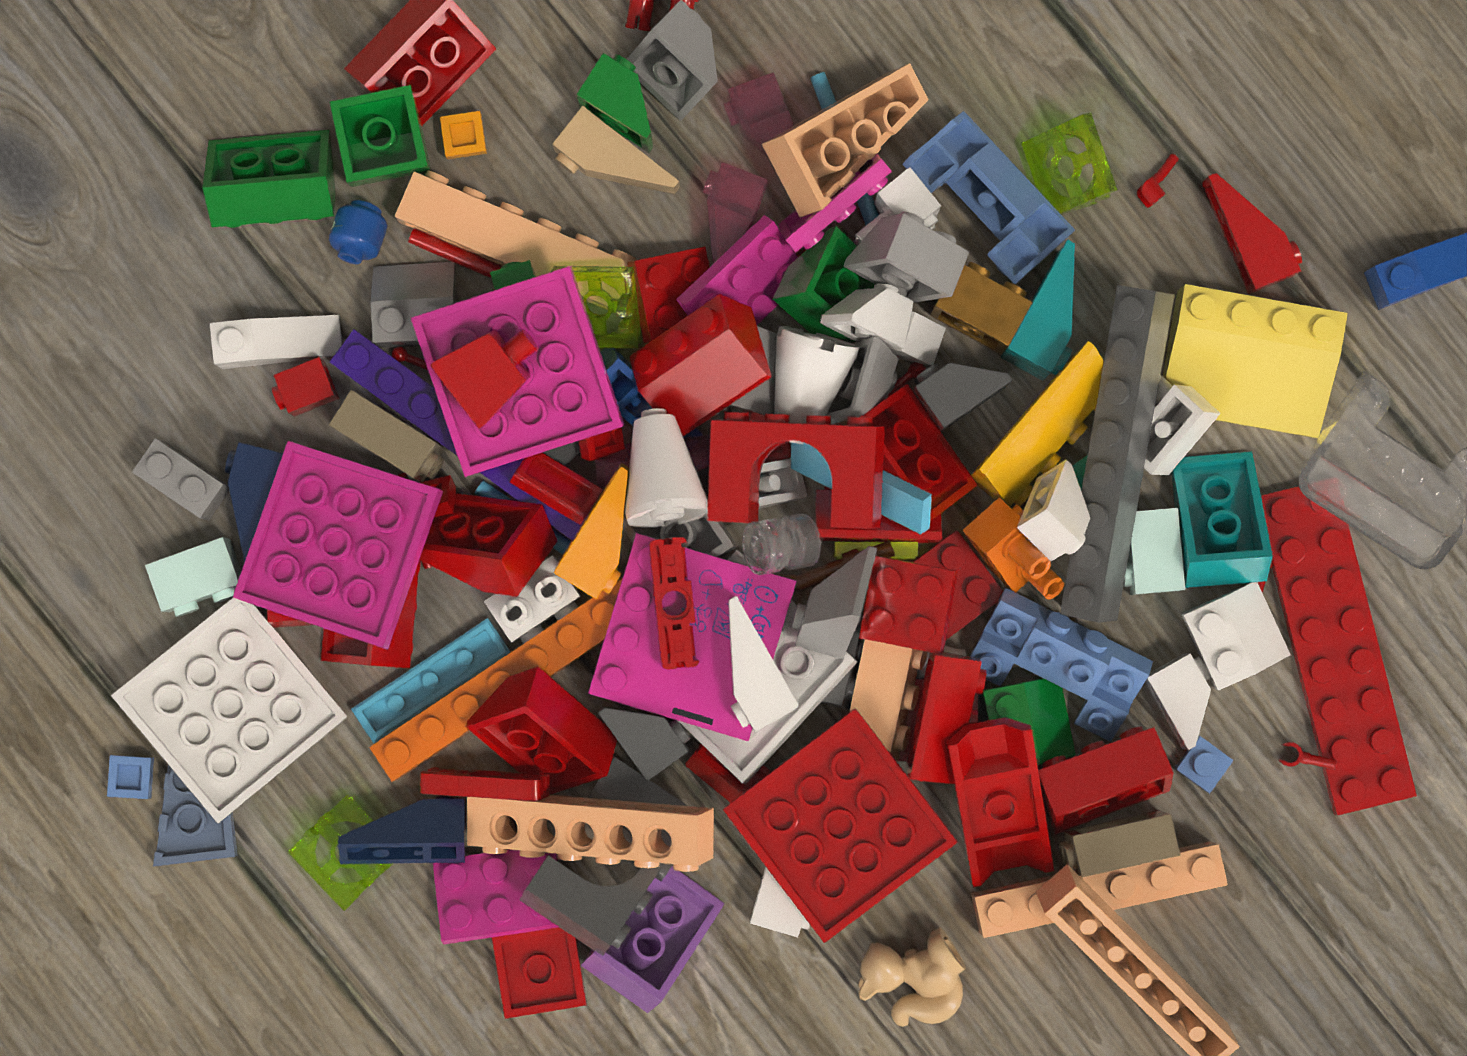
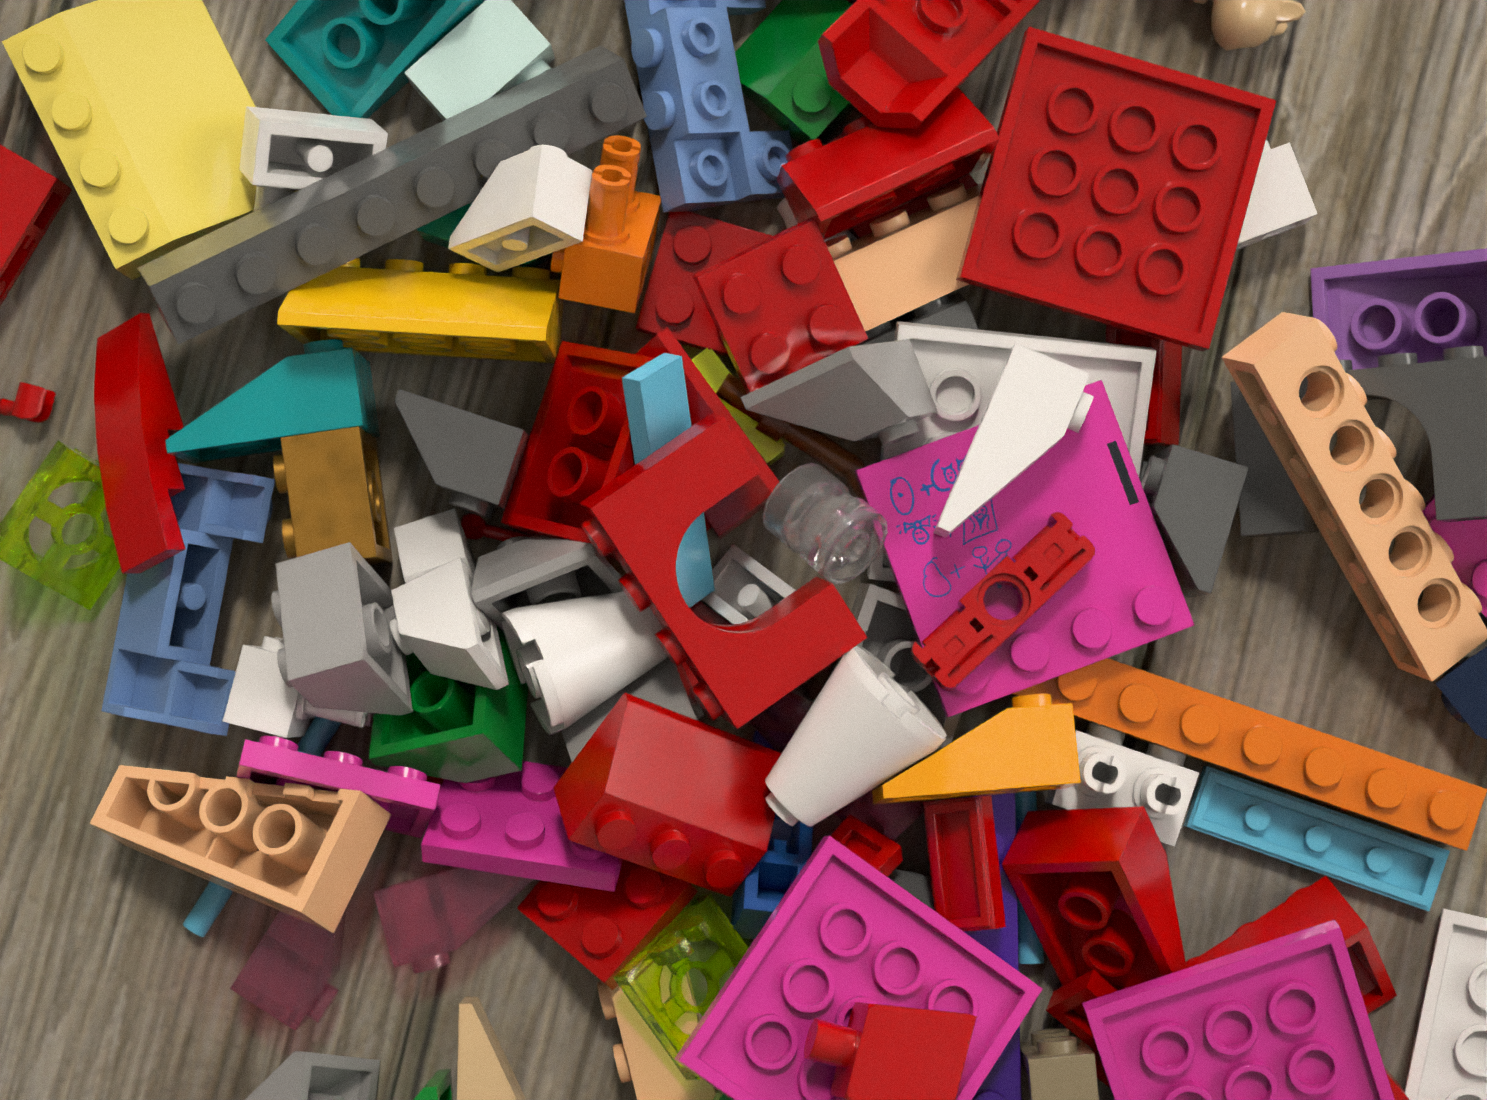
camera: 125 degrees left, 0 degrees up
(485, 784) = (1398, 670): red piece -> none
(544, 731) = (1280, 646): red slope -> none
(1096, 233) = (132, 422): none -> red slope

